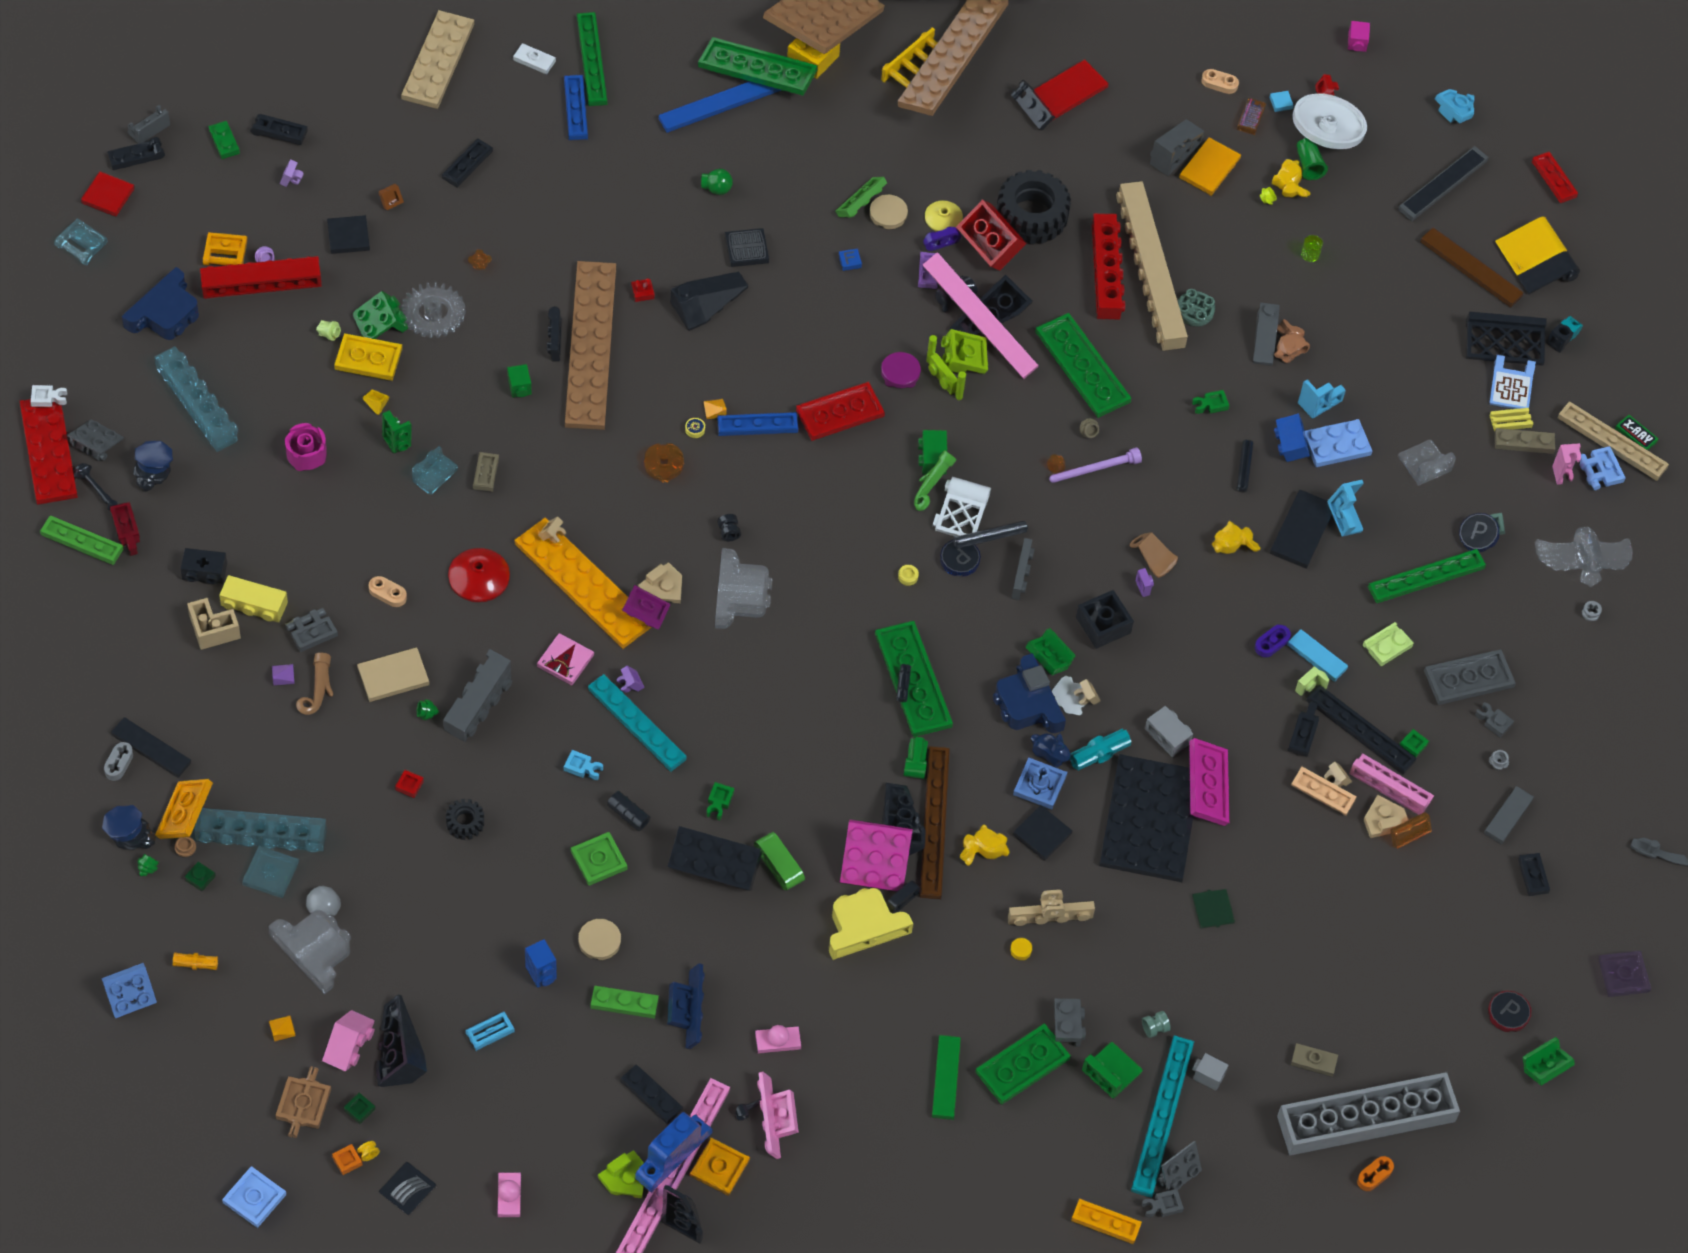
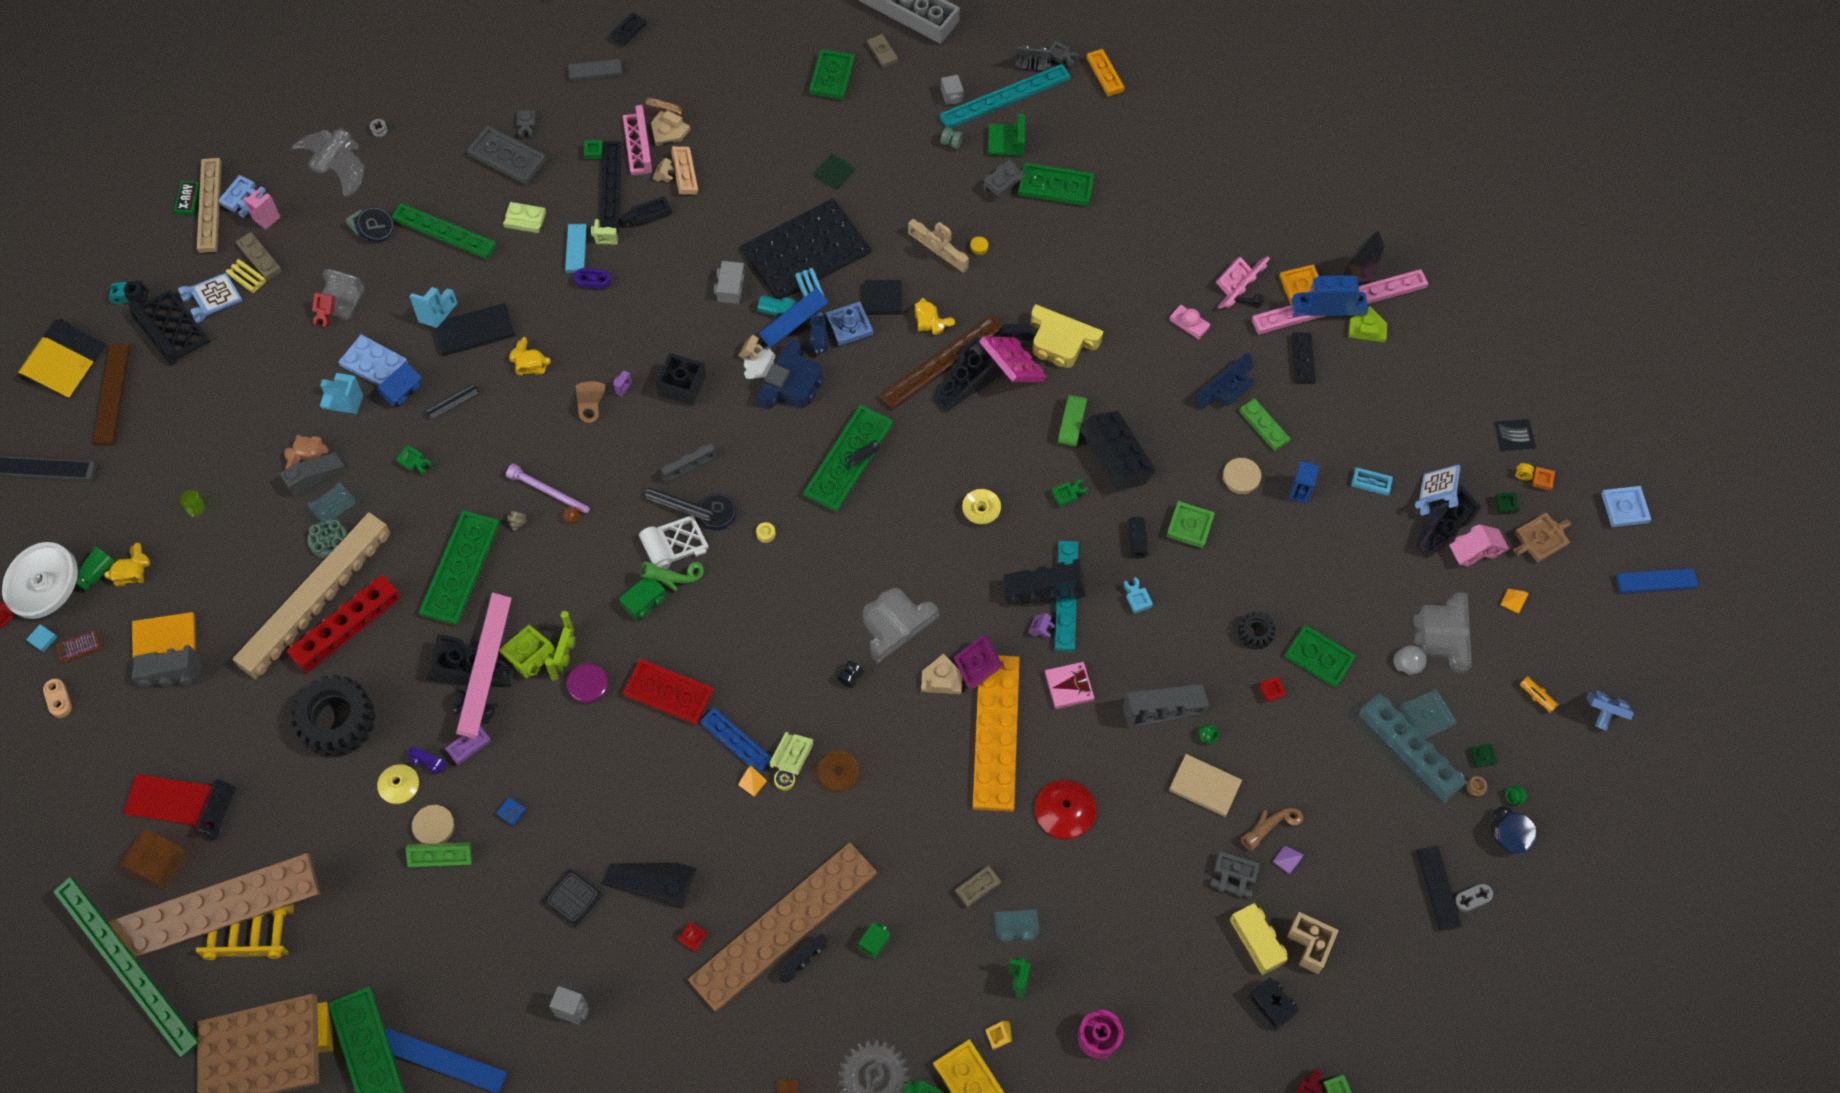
camera: 130 degrees left, 5 degrees up
(174, 1152) = (1656, 581): none -> blue tile
(184, 809) = (1458, 809): light orange tile -> none
(386, 591) = (1147, 855): light nougat plate -> none
(397, 845) = (1320, 656): none -> green tile
(425, 1056) = (1437, 486): none -> flag
(509, 1194) = (1453, 375): bright pink tile -> none
(550, 530) = (985, 781): tan tile -> none
(655, 702) = (1045, 584): none -> black wedge
(670, 182) = (569, 1005): none -> light grey brick
(708, 442) = (791, 753): none -> yellowish green plate
(717, 181) = (527, 977): green piece -> none
(772, 720) = (981, 499): none -> light yellow dish
(915, 763) = (914, 402): green piece -> none
(946, 1077) = (1108, 218): green tile -> none
(991, 235) = (394, 718): red brick -> none
(1029, 51) = (153, 859): none -> clear orange brick
(1051, 652) = (741, 393): green bracket -> none
(1082, 739) = (793, 317): none -> blue tile
(1104, 778) = (814, 279): none -> medium azure tile
(1209, 782) = (747, 230): dark pink plate -> none
(1217, 326) = (332, 503): none -> clear light blue plate
(1268, 196) = (162, 570): neon yellow plate -> none
(1324, 992) = (832, 74): none -> green plate
(1422, 441) = (323, 305): none -> red plate
(1499, 755) = (557, 99): light grey plate -> none

